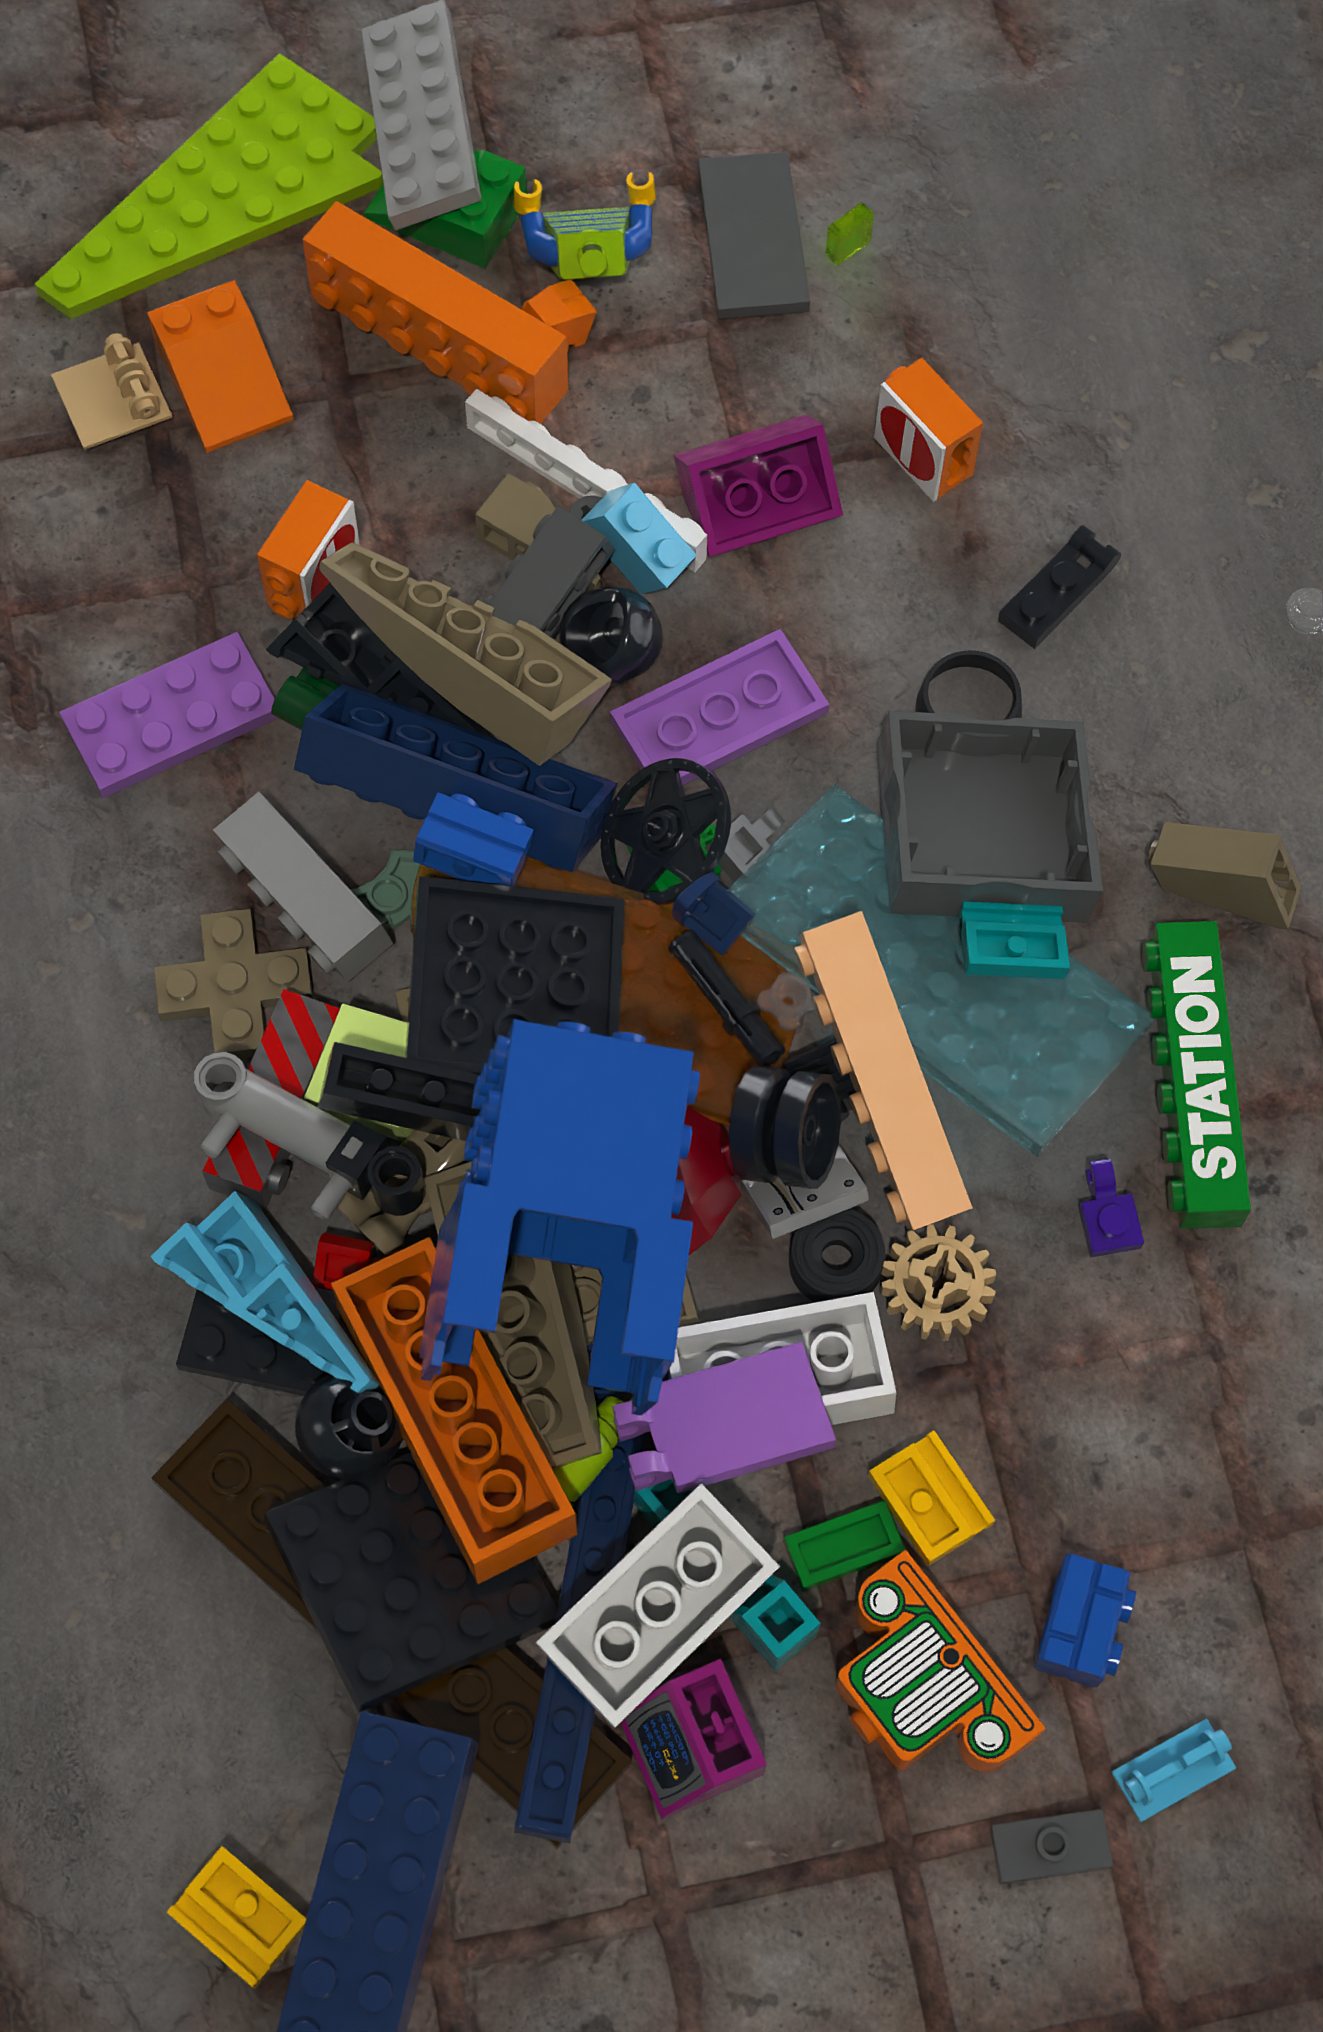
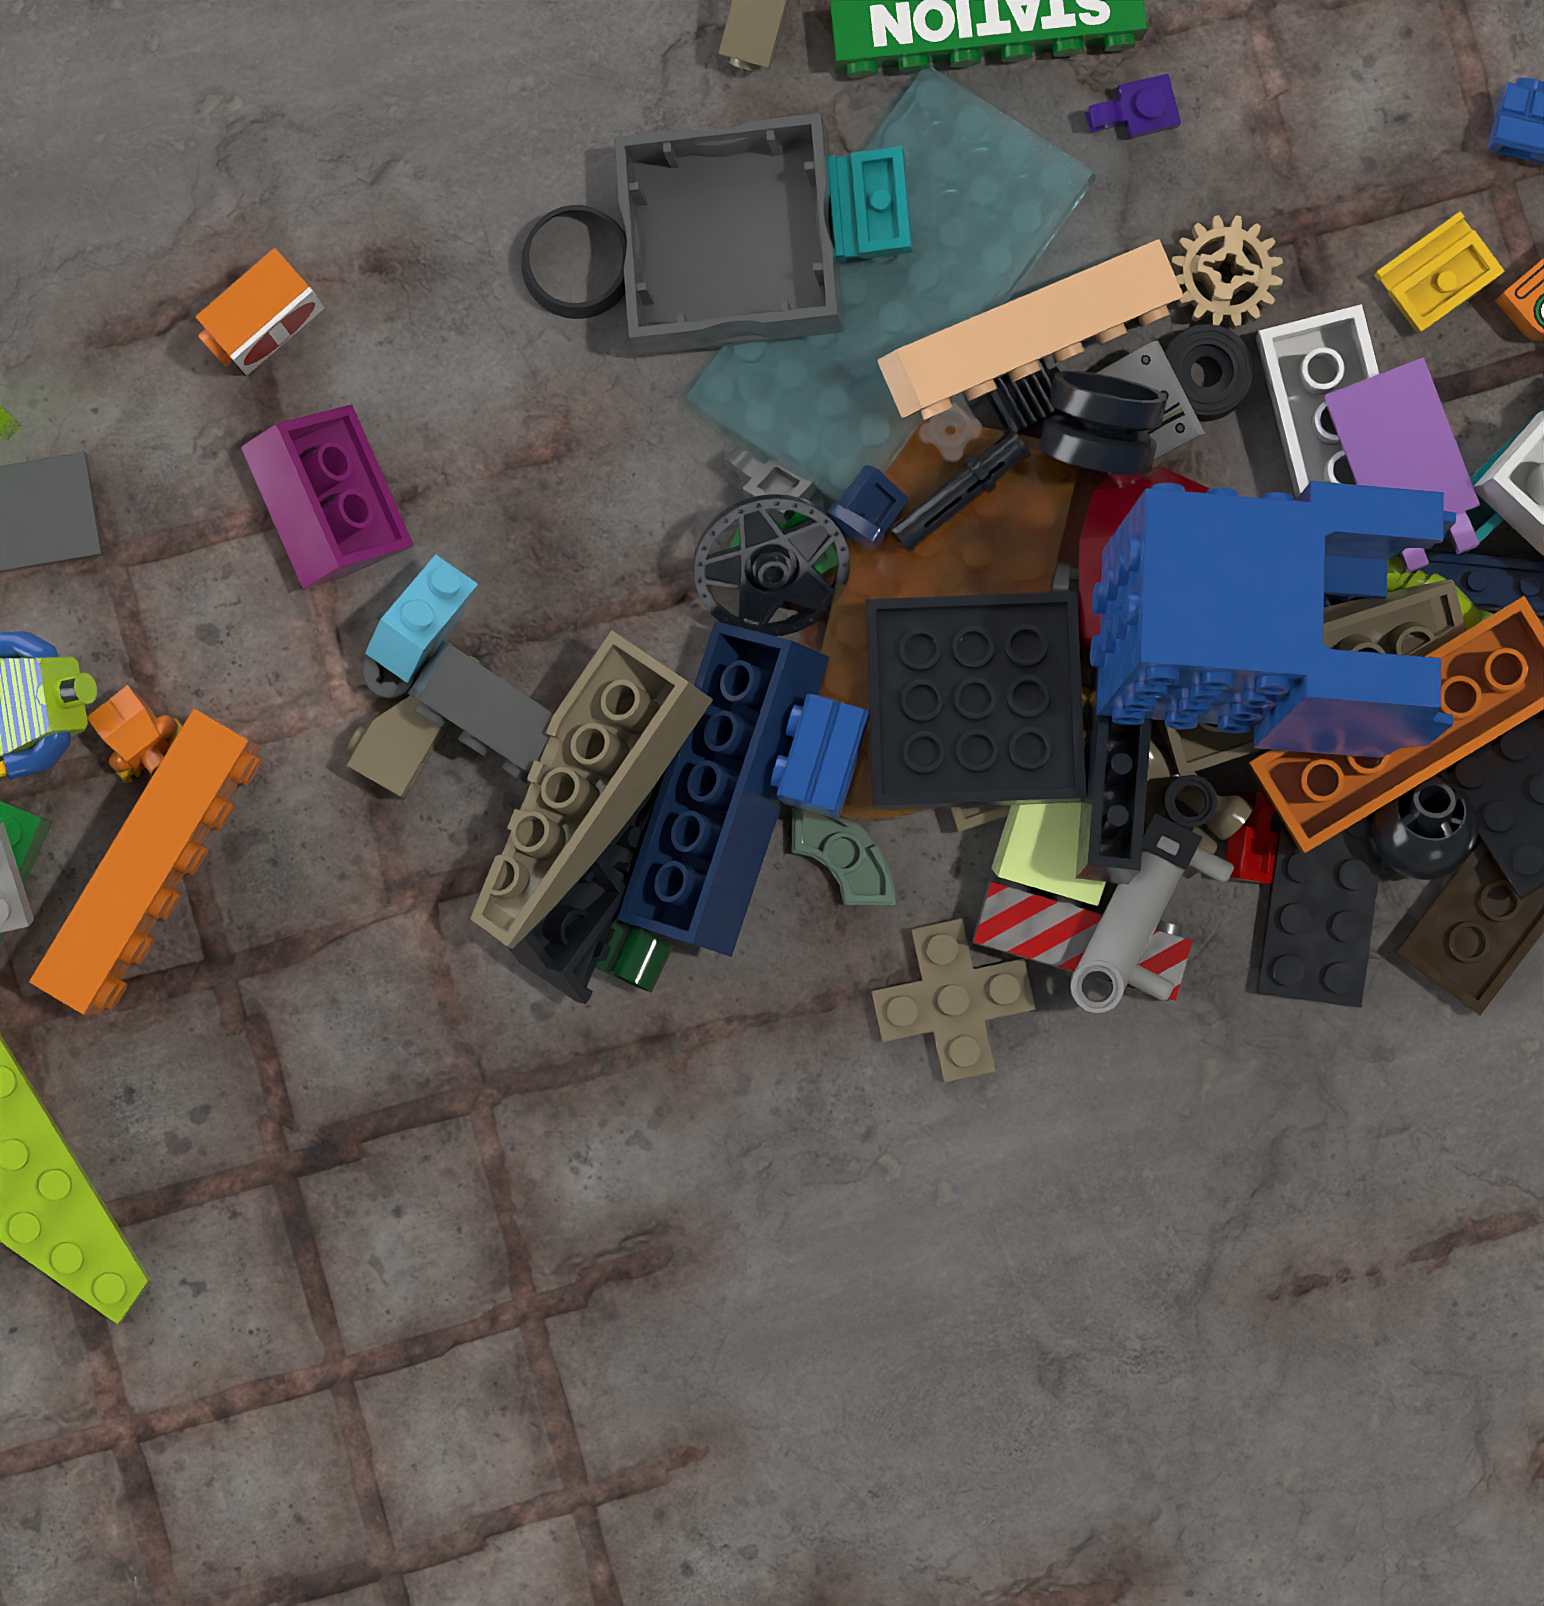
camera: 90 degrees left, 20 degrees up
(111, 393) = (255, 1218): tan hinge -> none
(169, 714) = (647, 1104): medium lavender plate -> none
(219, 366) = (217, 1099): orange slope -> none
(253, 1274) = (1275, 940): medium azure wedge -> none
(303, 888) = (853, 938): light grey brick -> none
(307, 533) = (464, 972): orange piece -> none
(562, 463) = (322, 700): white plate -> none
(613, 632) = (539, 639): black piece -> none
(723, 707) = (608, 521): medium lavender plate -> none
(843, 1546) = (1487, 354): green tile -> none
(1058, 588) = (429, 170): black plate -> none

